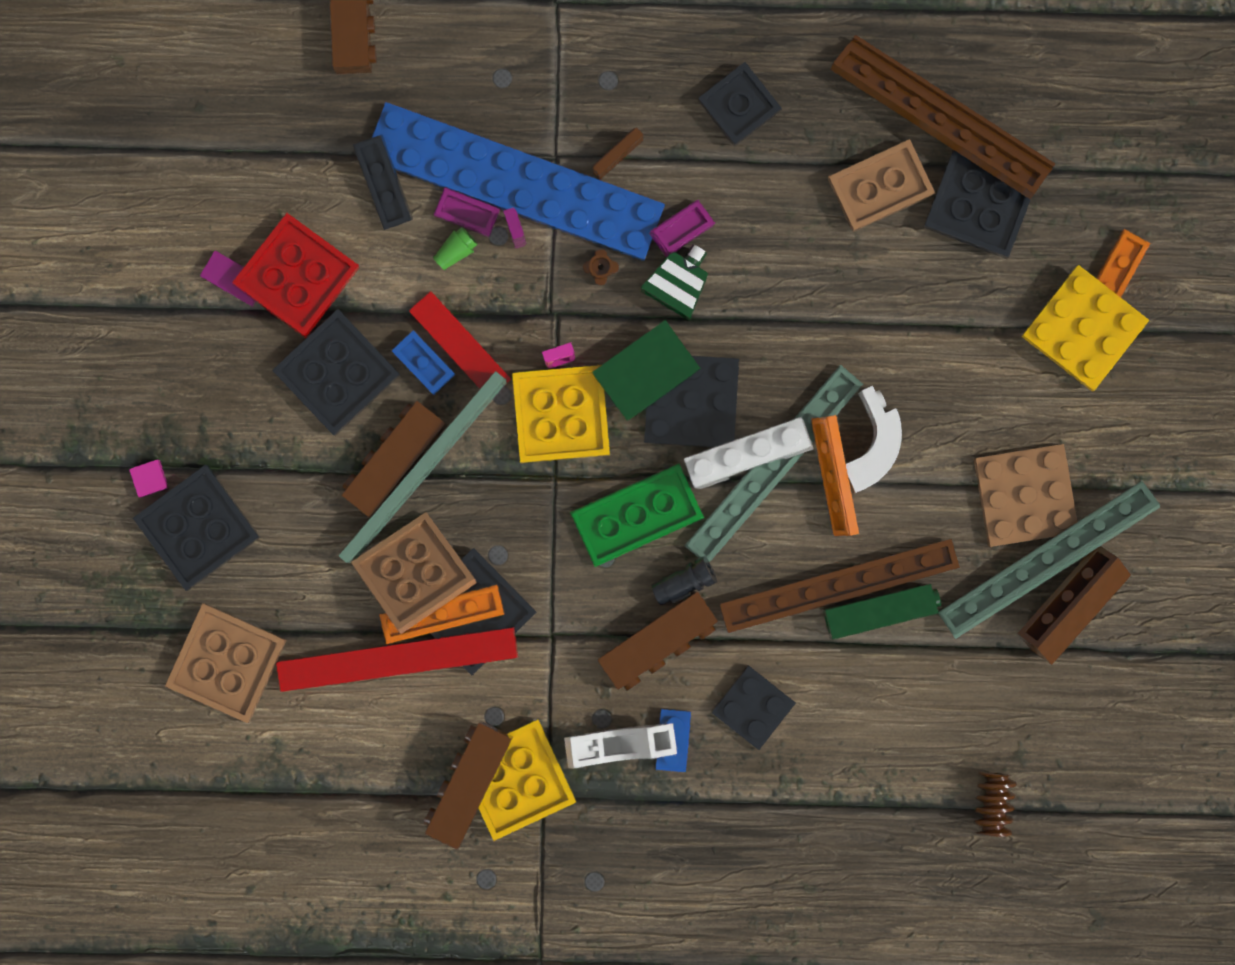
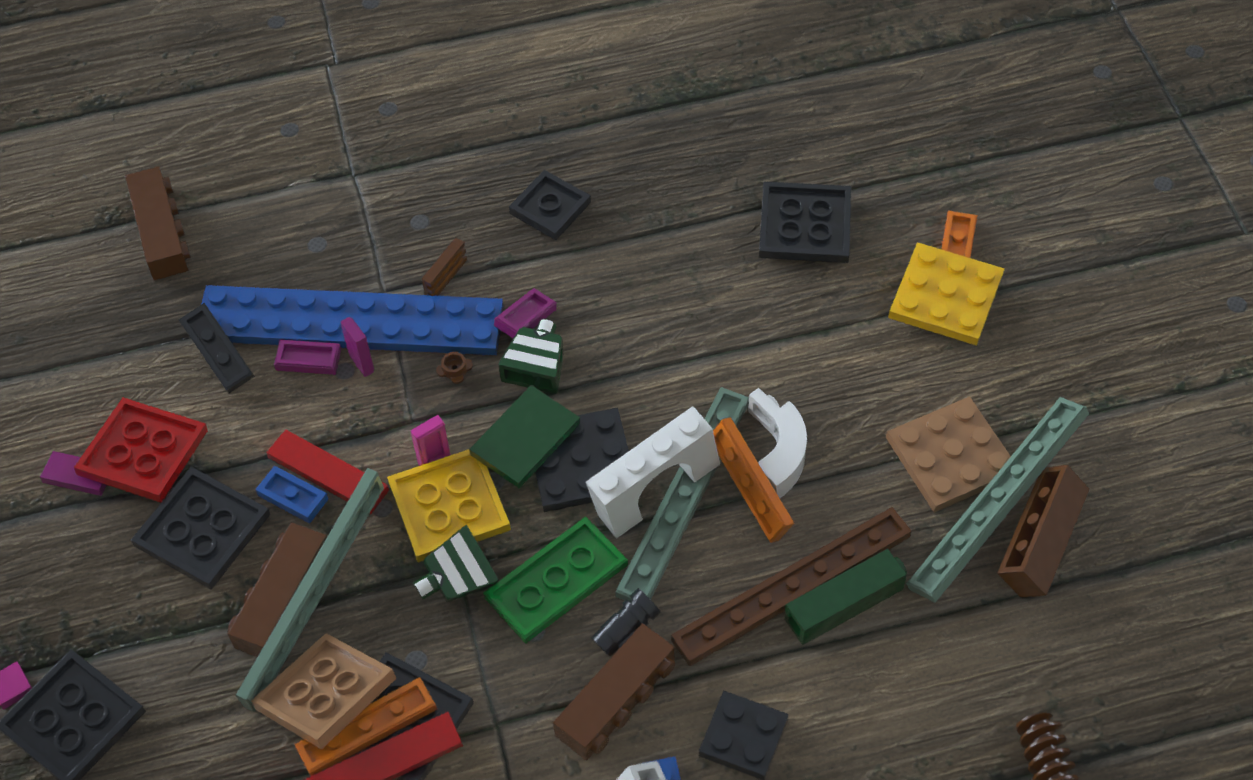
camera: 10 degrees left, 30 degrees down
(455, 248) = (303, 385): bright green cone -> none
(552, 488) = (456, 568): none -> torso
(881, 185) = (706, 233): medium nougat plate -> none
(942, 116) = (744, 163): reddish brown plate -> none

